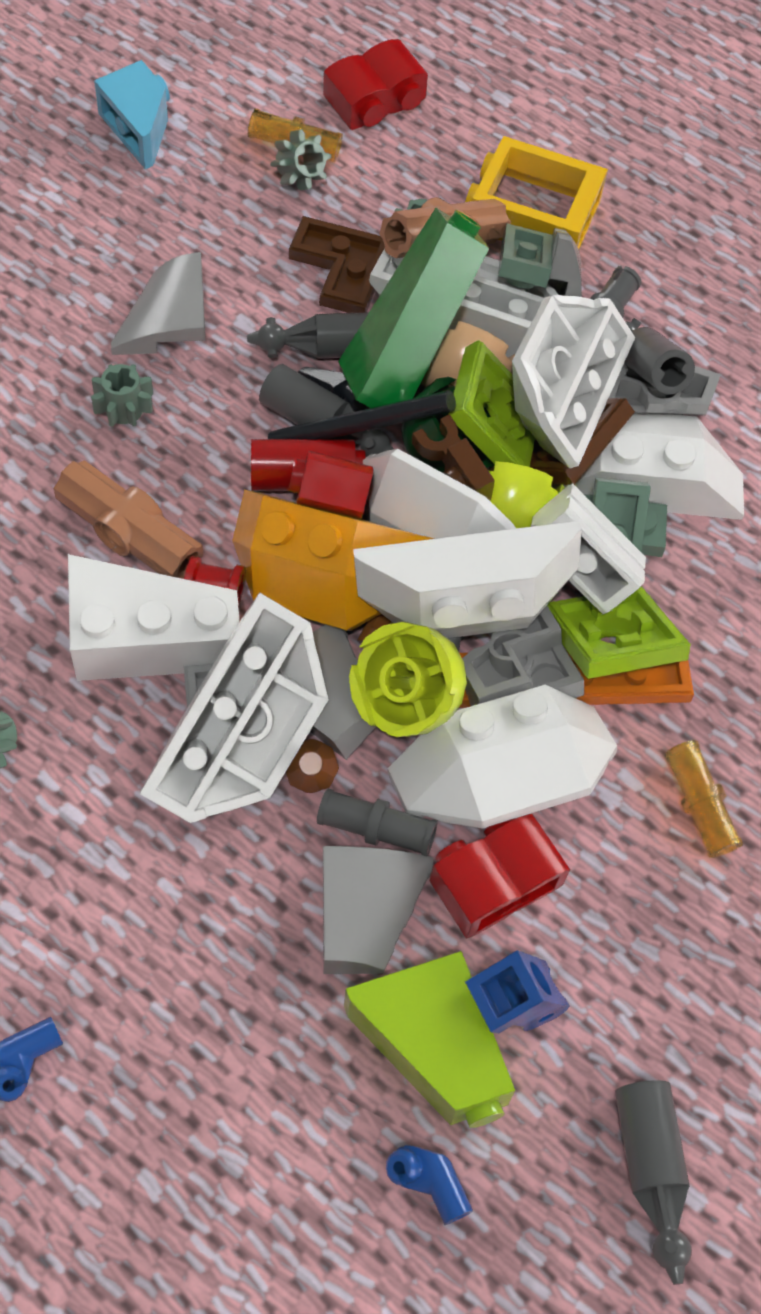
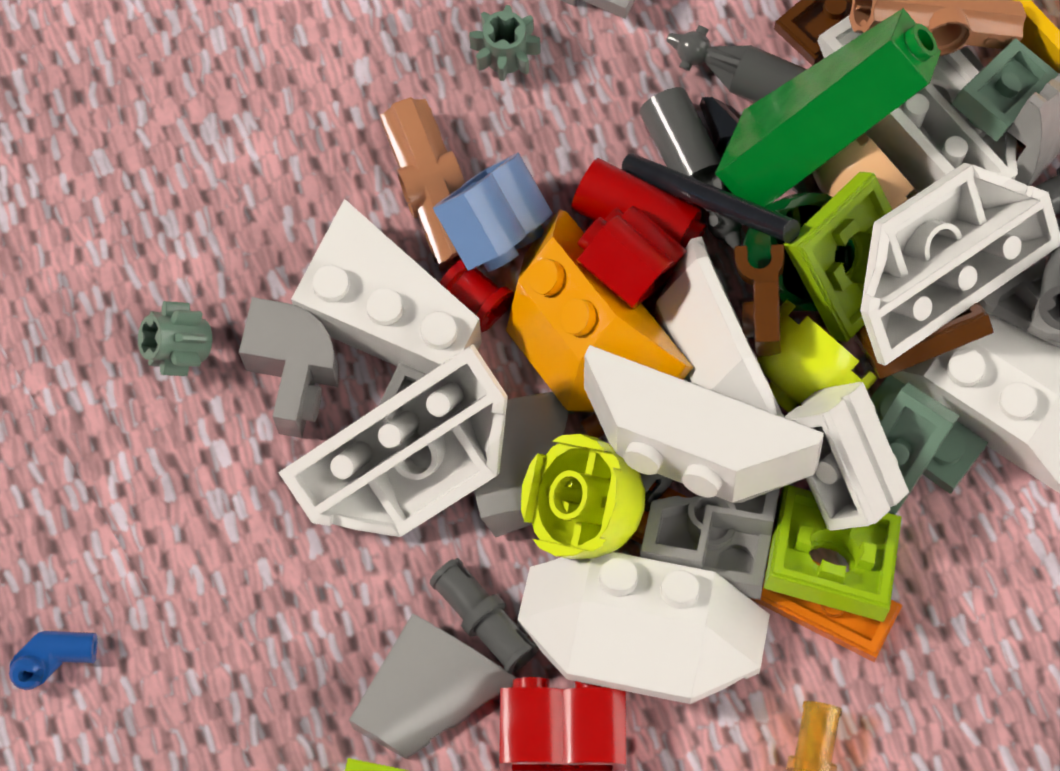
camera: 40 degrees right, 10 degrees up
(88, 694) = (294, 346): none -> light grey brick
(198, 511) = (494, 214): none -> medium blue brick
(313, 767) = (459, 527): dark orange rock -> none

